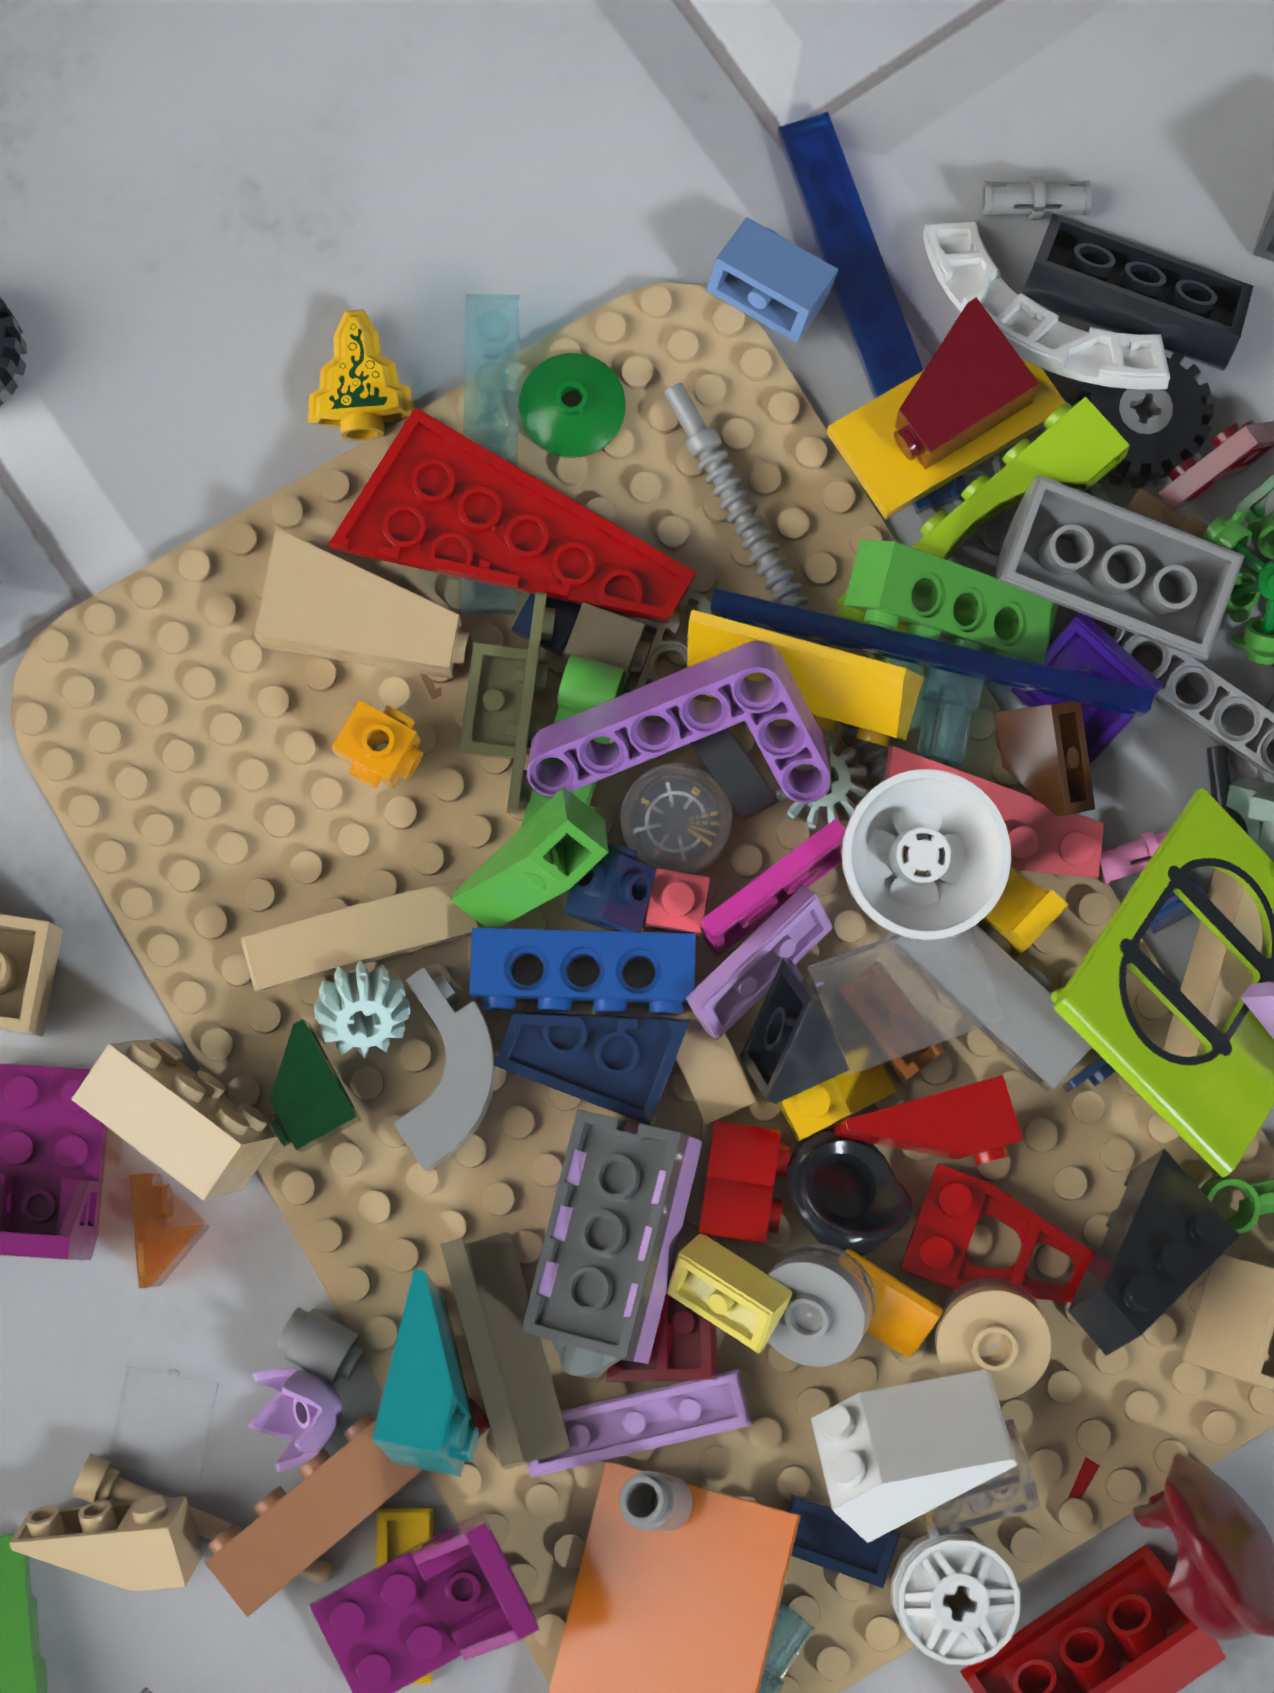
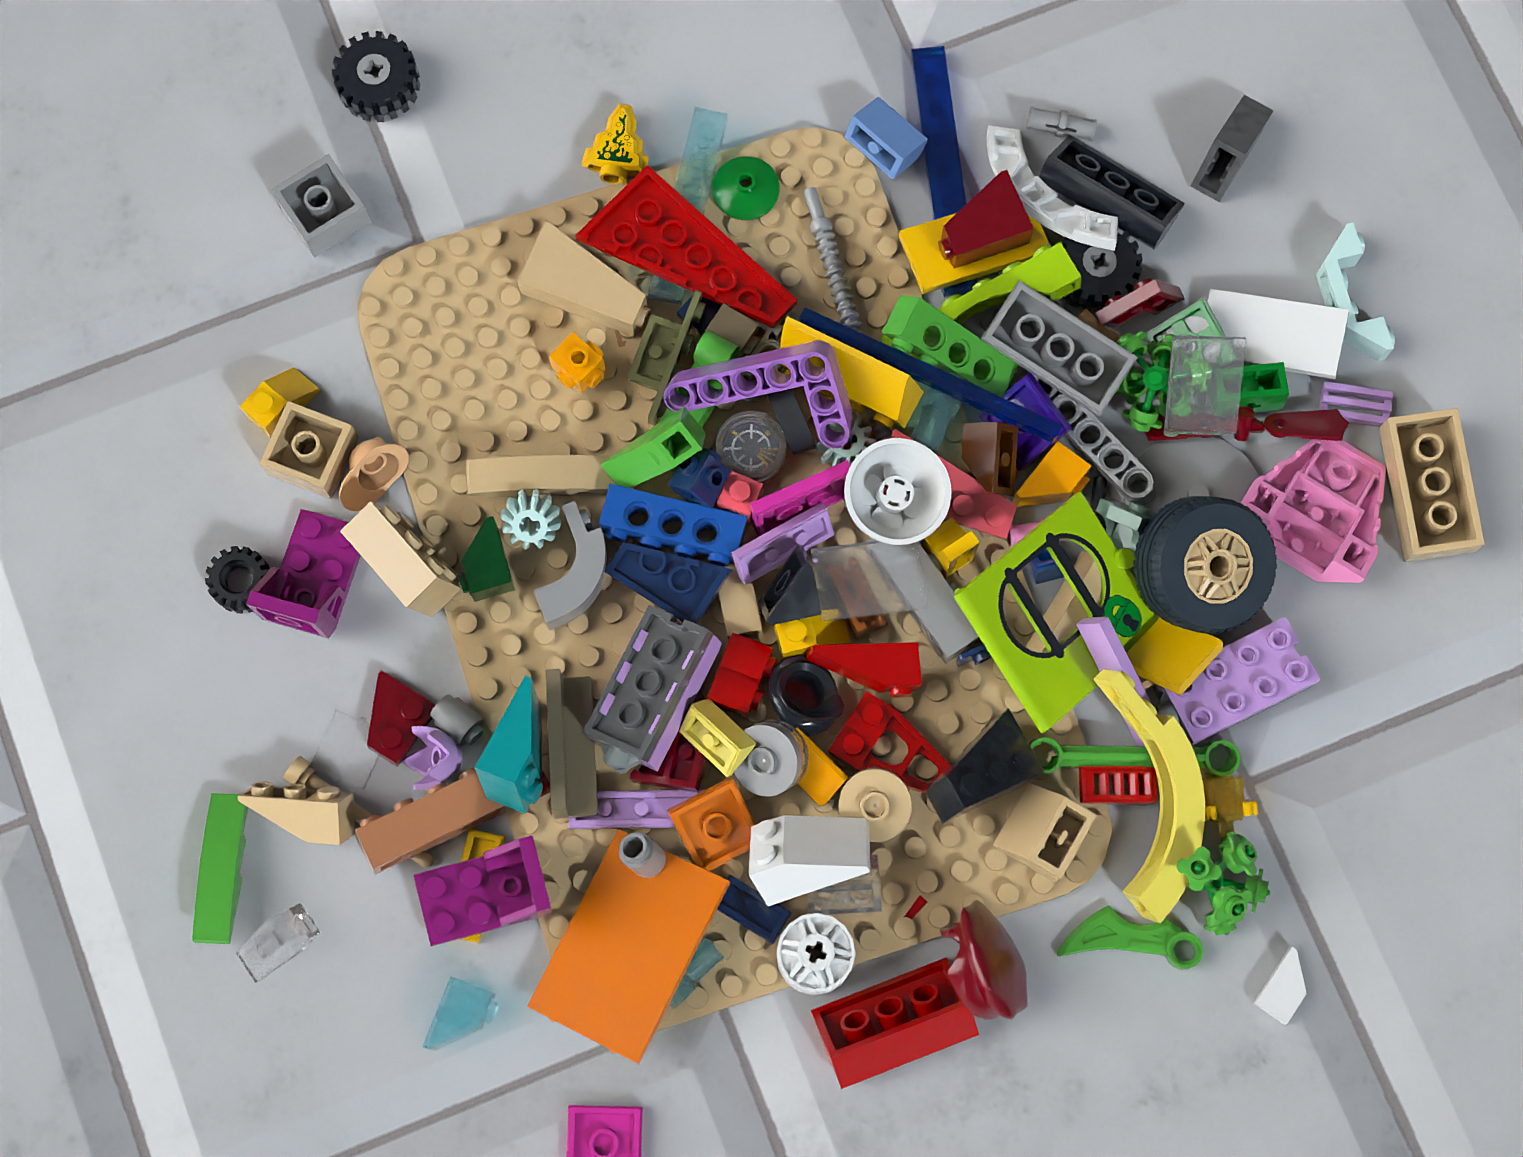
camera: 10 degrees right, 5 degrees down
(95, 983) = (372, 471): none -> light nougat piece
(158, 1247) = (373, 638): clear orange slope -> none
(220, 1358) = (393, 714): none -> dark red wing
(753, 1426) = (714, 824): none -> orange tile
(1149, 764) = (1054, 478): none -> light orange slope

